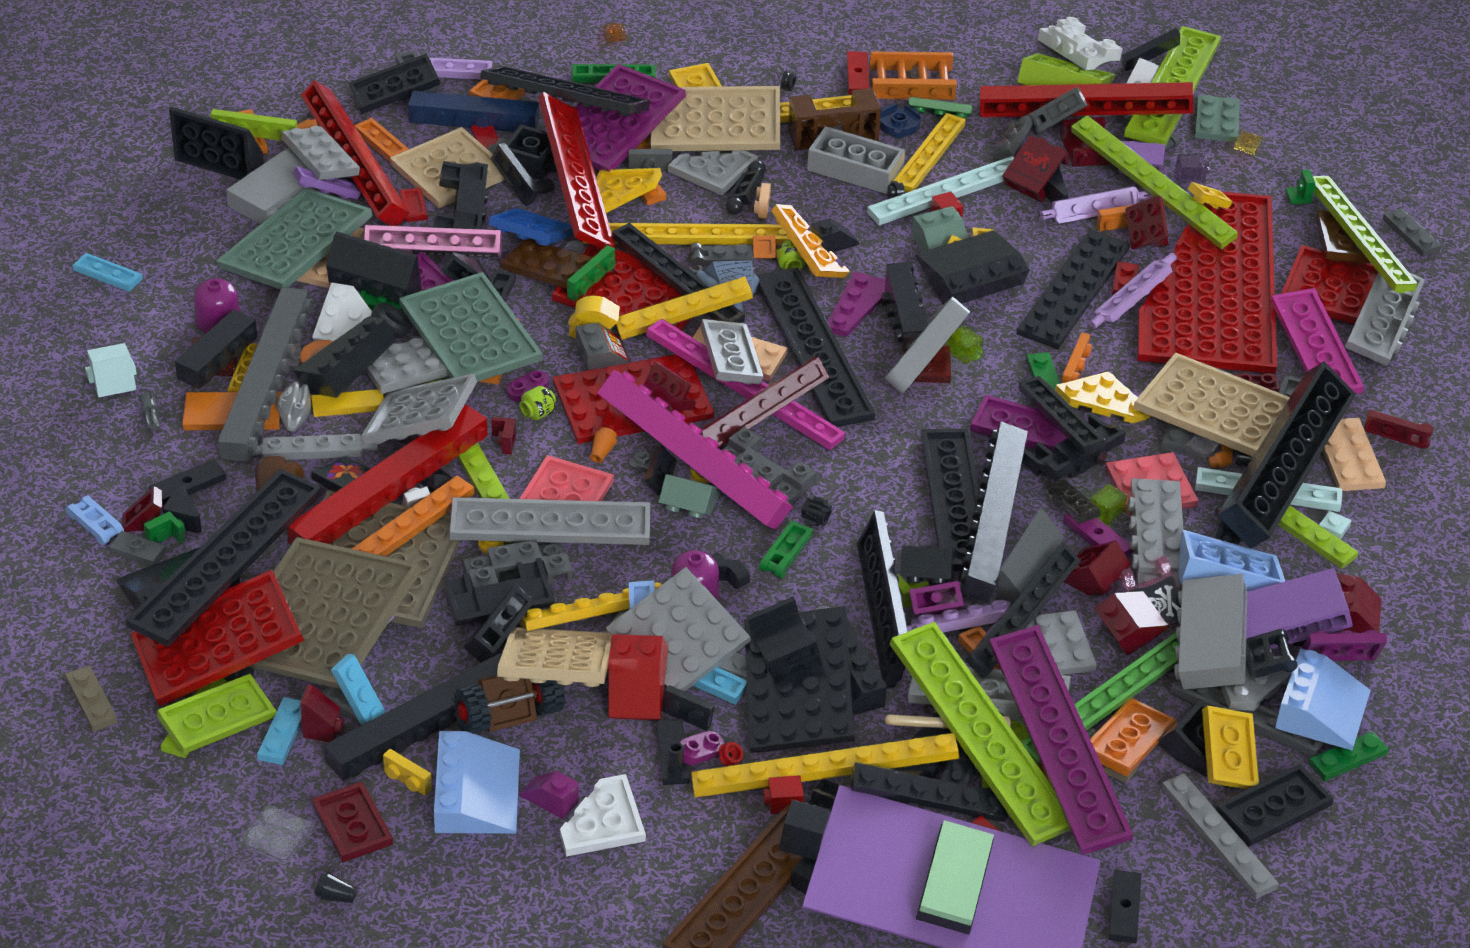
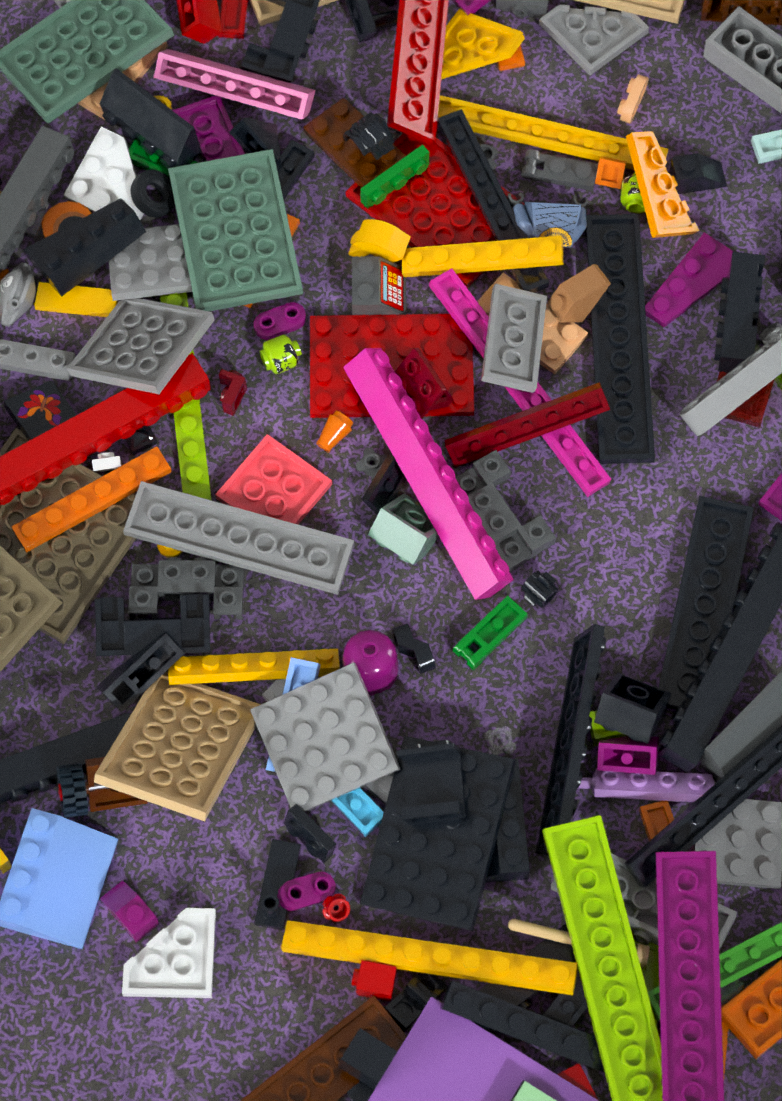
camera: 20 degrees right, 25 degrees up
(531, 225) = (348, 84): blue plate -> none
(563, 241) = (371, 135): none -> black hair
(637, 676) = (263, 786): red slope -> none
(745, 187) = (619, 72): black plate -> none
(772, 319) = (578, 295): none -> medium nougat slope

